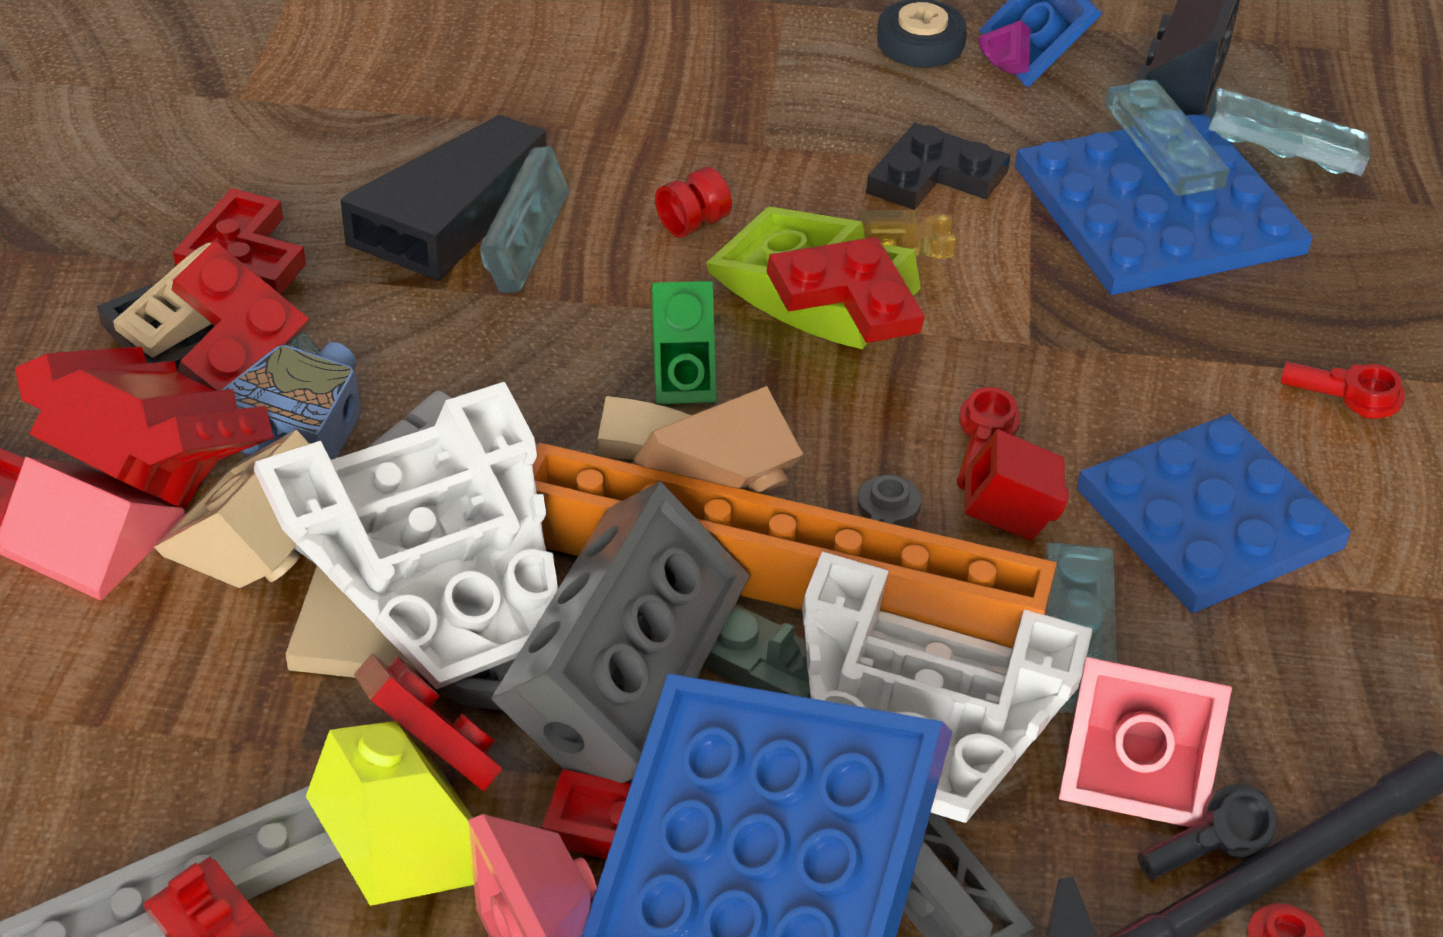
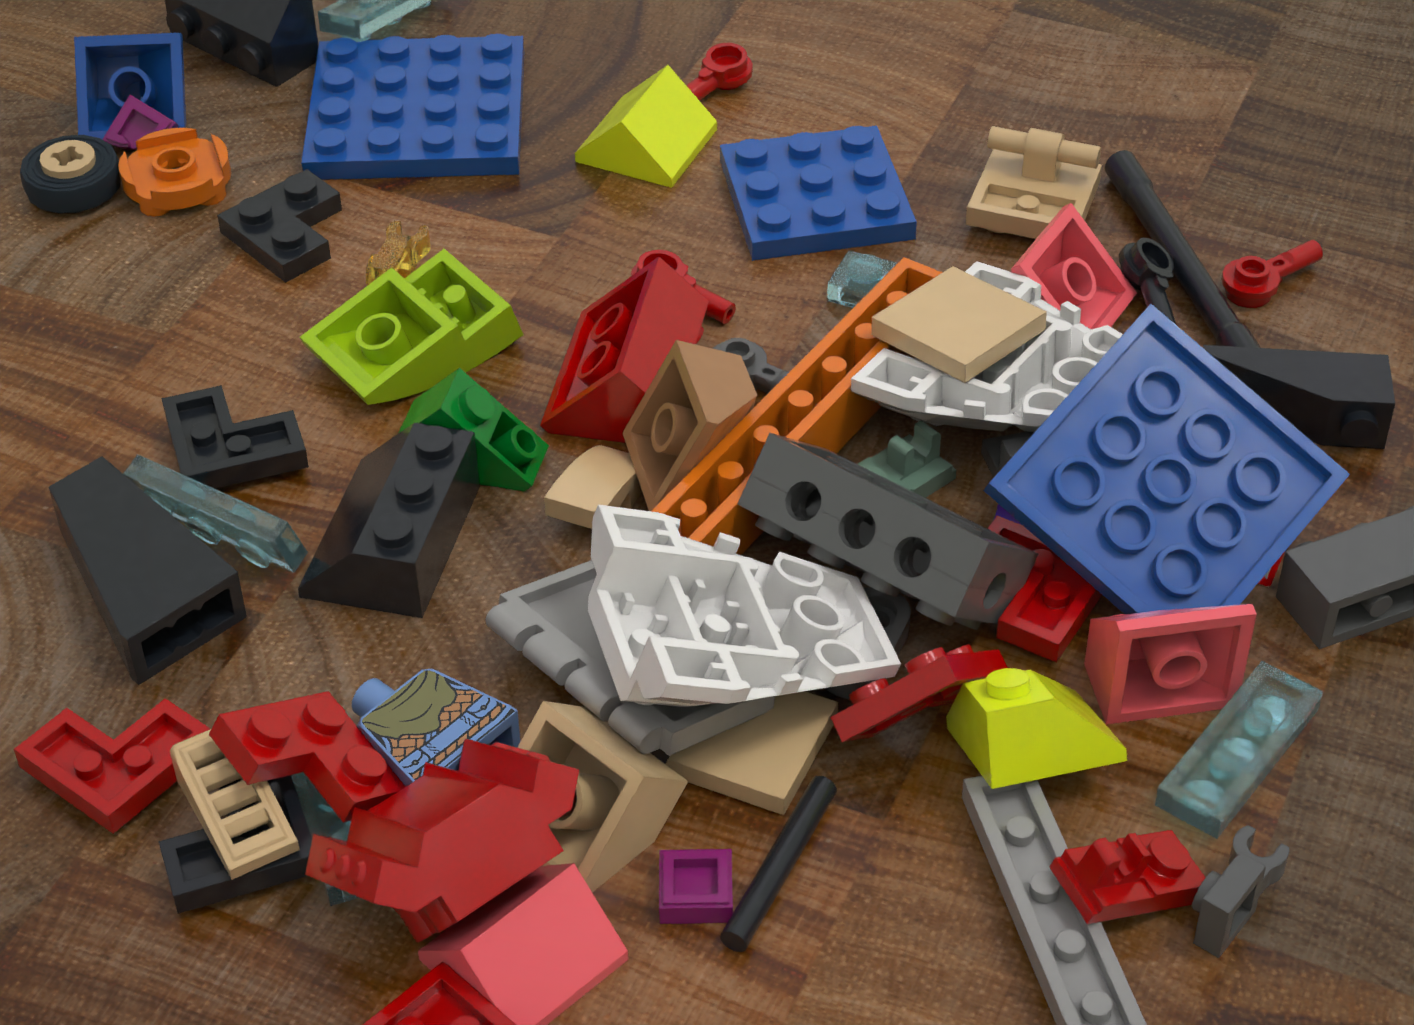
camera: 70 degrees left, 0 degrees up
(181, 621) = (695, 886): none -> magenta tile
(220, 673) = (778, 864): none -> black bar
(558, 330) = (397, 523): none -> black slope
(618, 205) = (227, 452): none -> black plate
(697, 200) = (257, 383): red wheel -> none
(853, 274) = (478, 286): red plate -> none
(864, 417) = (620, 350): none -> red slope
(940, 616) = (959, 324): none -> tan tile
(963, 86) = (158, 188): none -> orange plate
(1015, 485) = (768, 275): red brick -> none
(1167, 137) = (359, 63): clear light blue plate -> none
(1222, 363) = (651, 131): none -> neon yellow slope
(1317, 690) = (1032, 180): none -> tan plate

